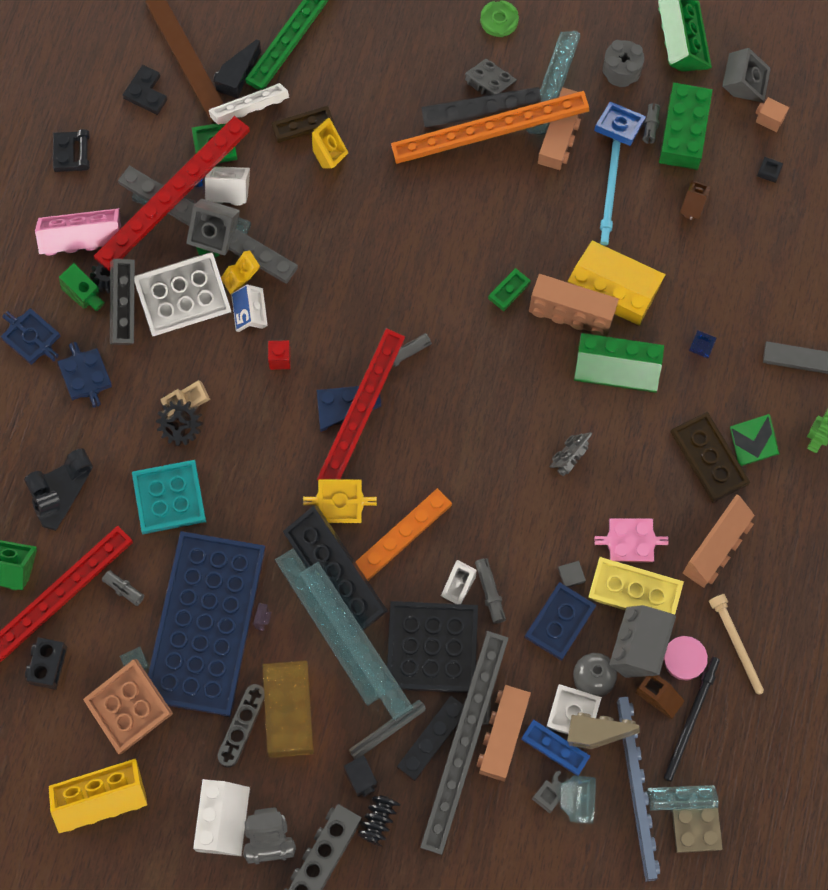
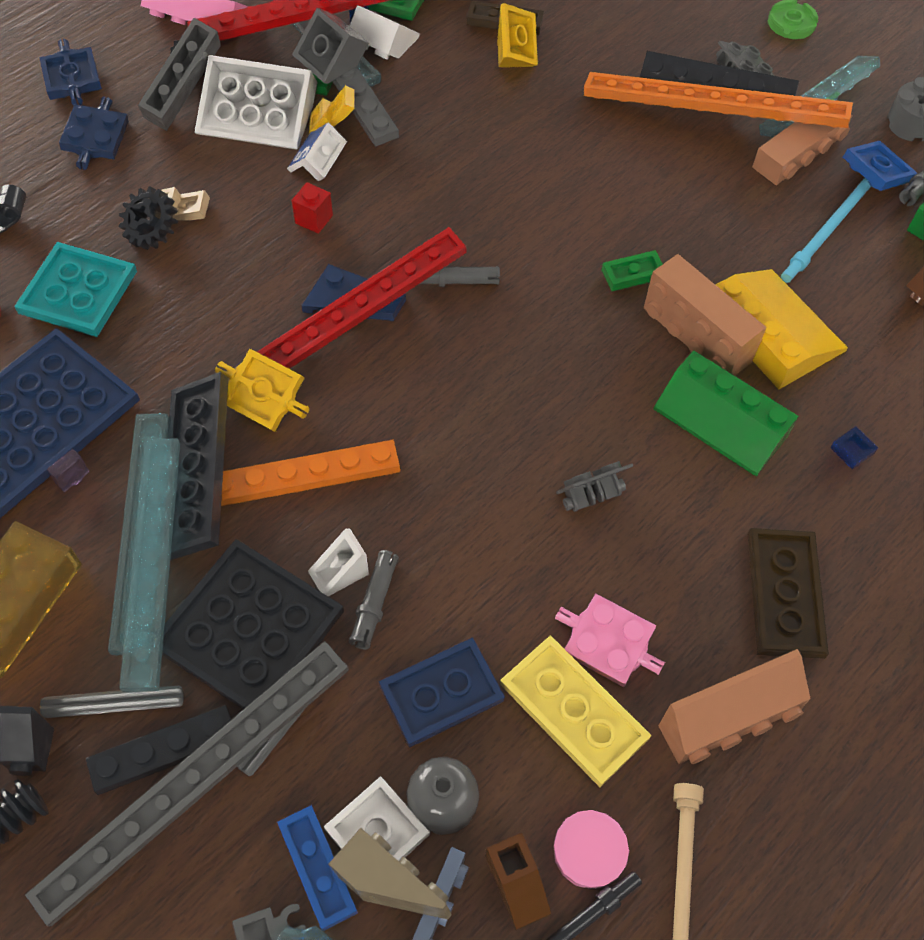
camera: 30 degrees right, 10 degrees down
(80, 288) = (155, 56): green torso -> none
(504, 732) = (257, 801): nougat brick -> none
(571, 574) = (498, 639): dark grey tile -> none
(642, 641) = (534, 783): dark grey slope -> none
(754, 440) = (865, 601): green piece -> none

